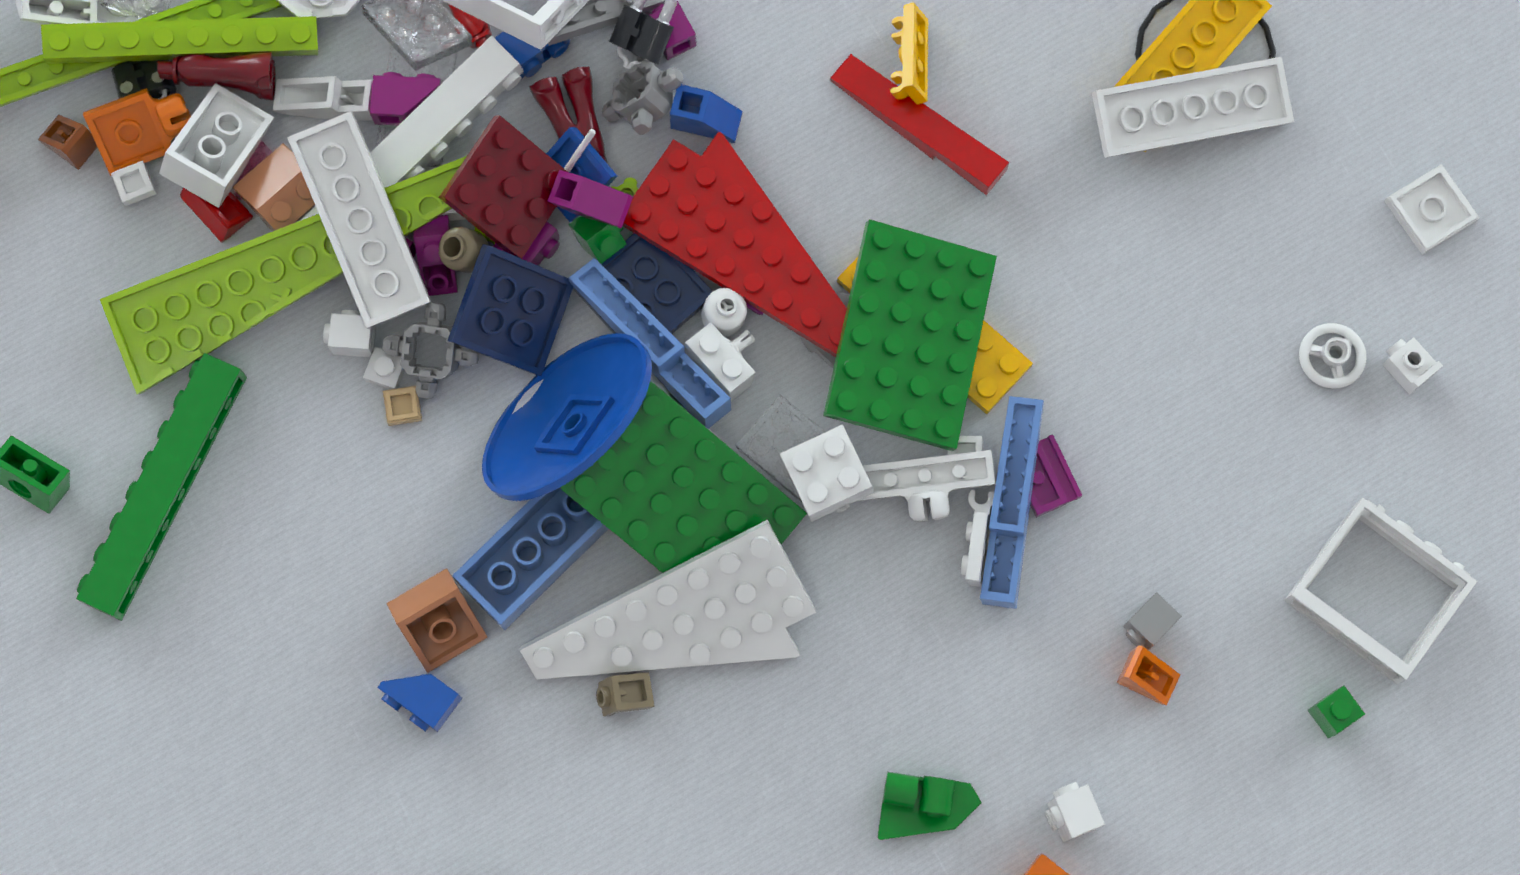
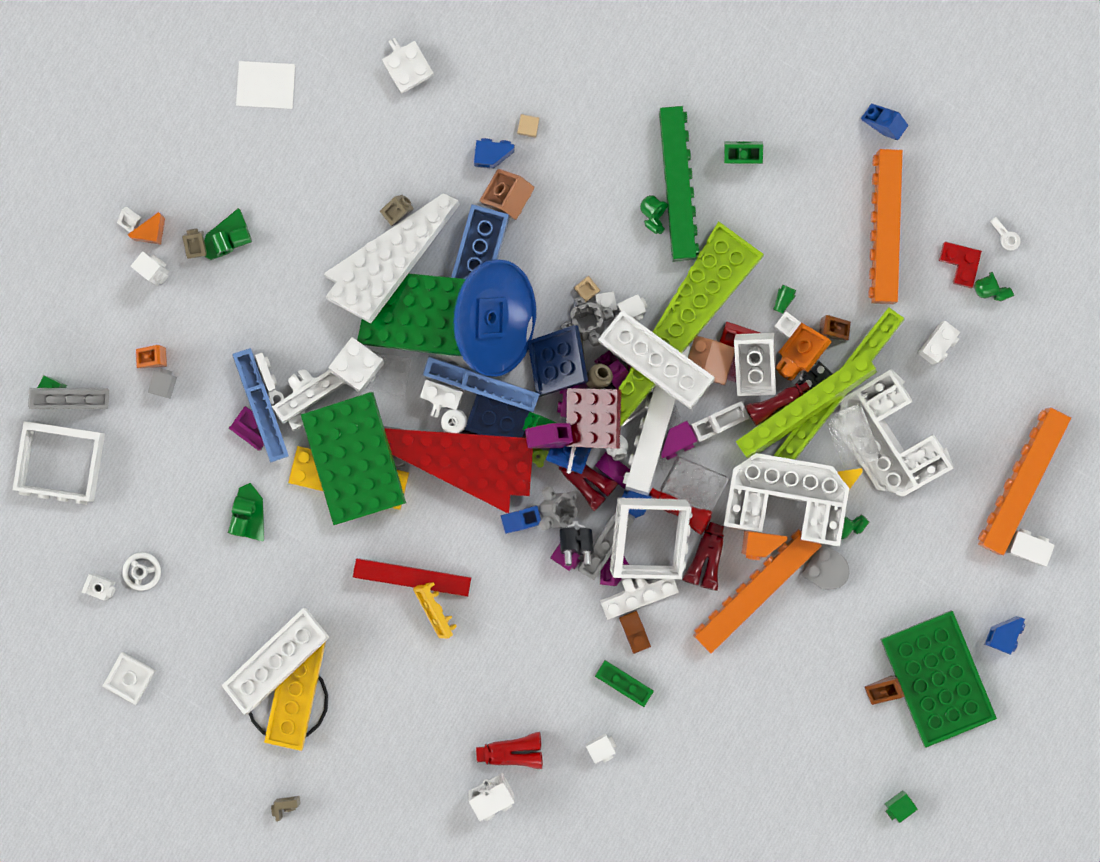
camera: 150 degrees right, 10 degrees up
(112, 224) = (784, 298): none -> green cone
(225, 467) = (653, 210): none -> green piece
(338, 713) = (528, 125): none -> tan tile
(523, 112) = (612, 468): none -> magenta slope
(981, 820) = (194, 243): none -> dark tan bracket
(1121, 351) = (247, 514): none -> green panel
(1315, 673) = (68, 398): none -> light grey plate

